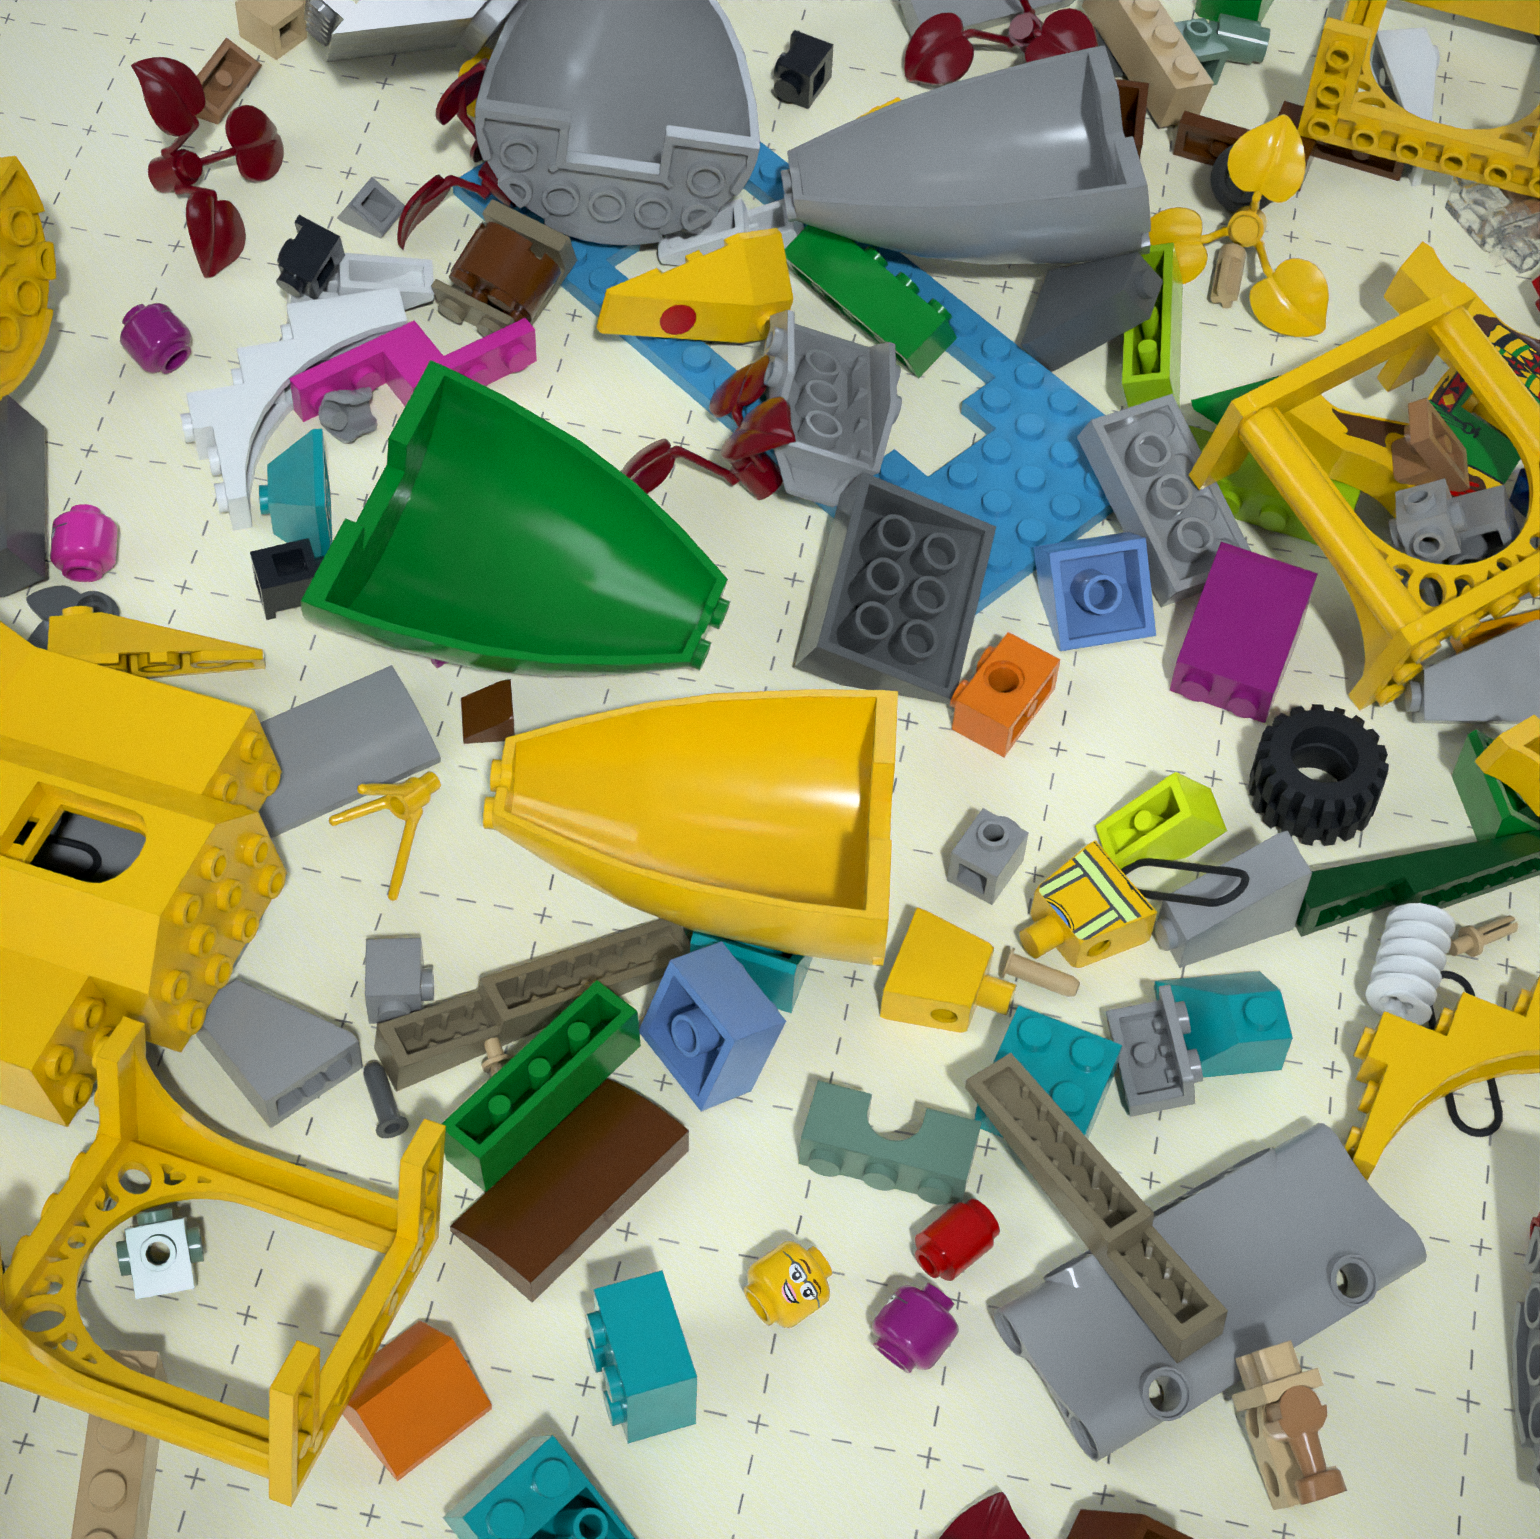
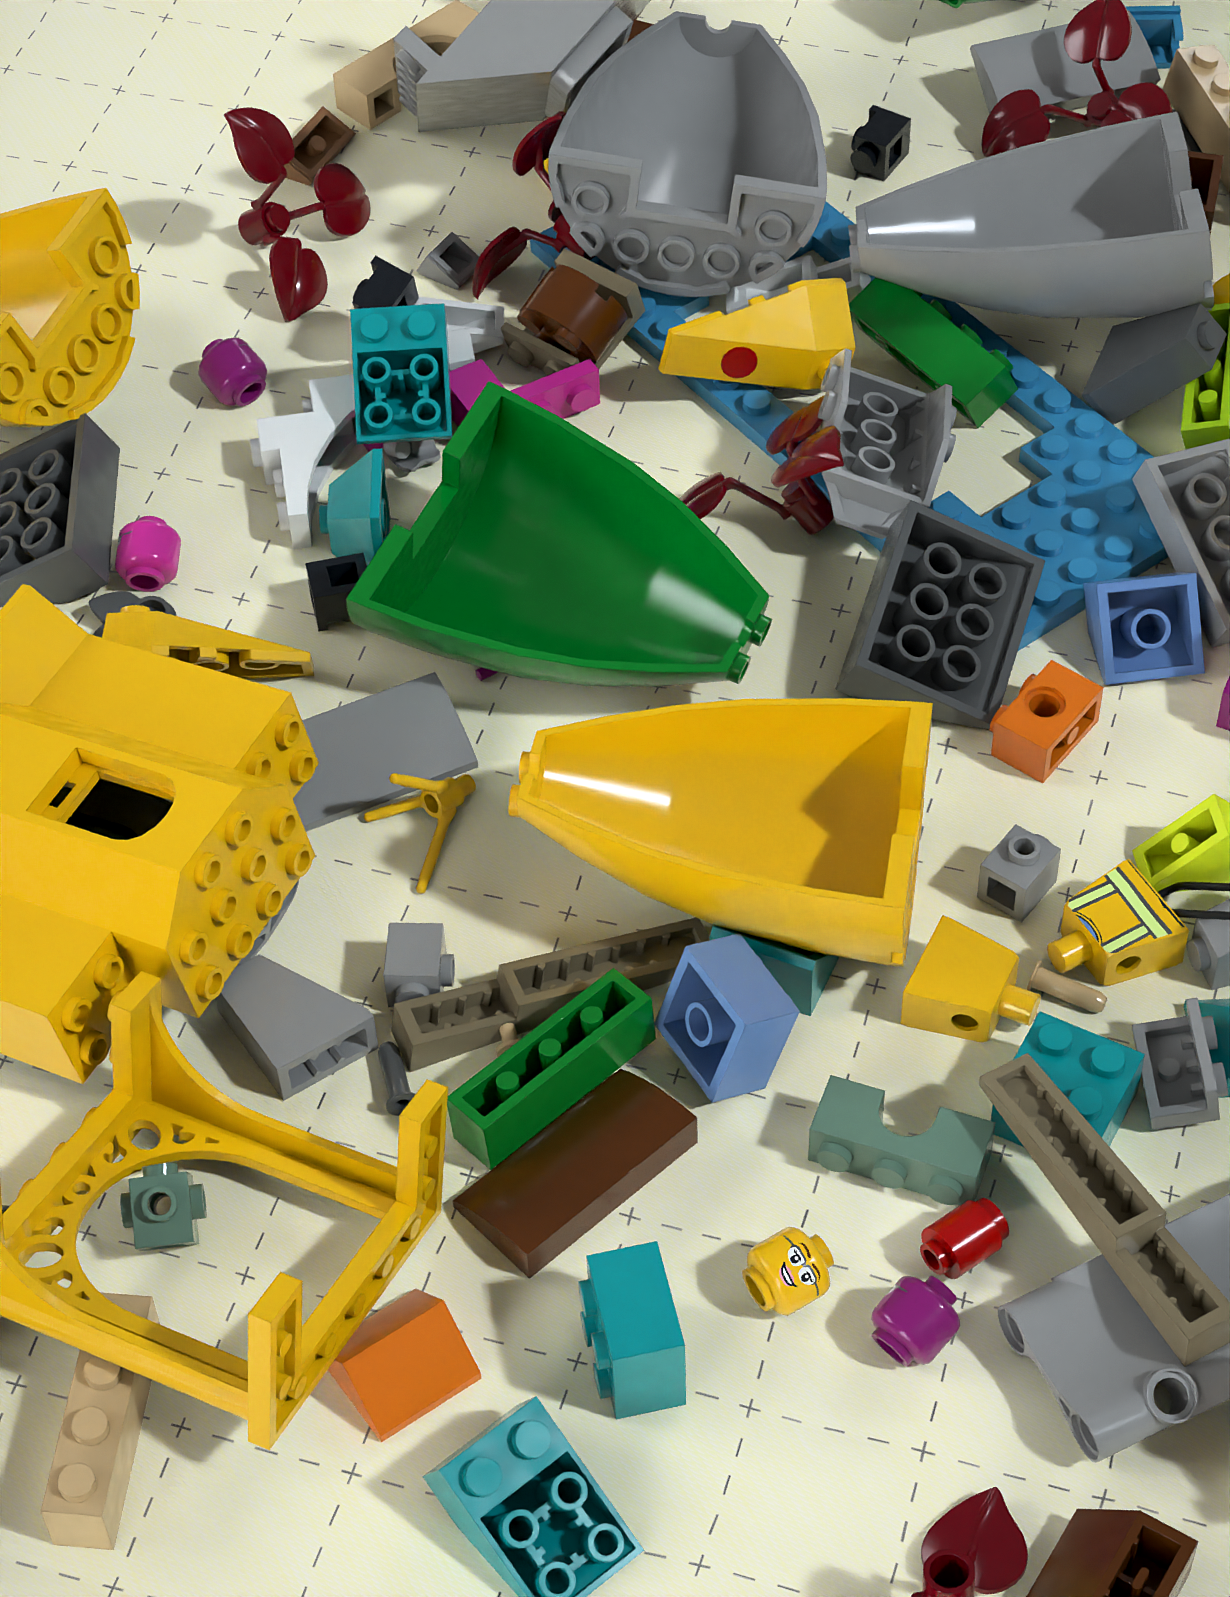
camera: 10 degrees right, 5 degrees down
(334, 343) = (401, 373): none -> teal slope
(488, 714) = (524, 718): reddish brown slope -> none

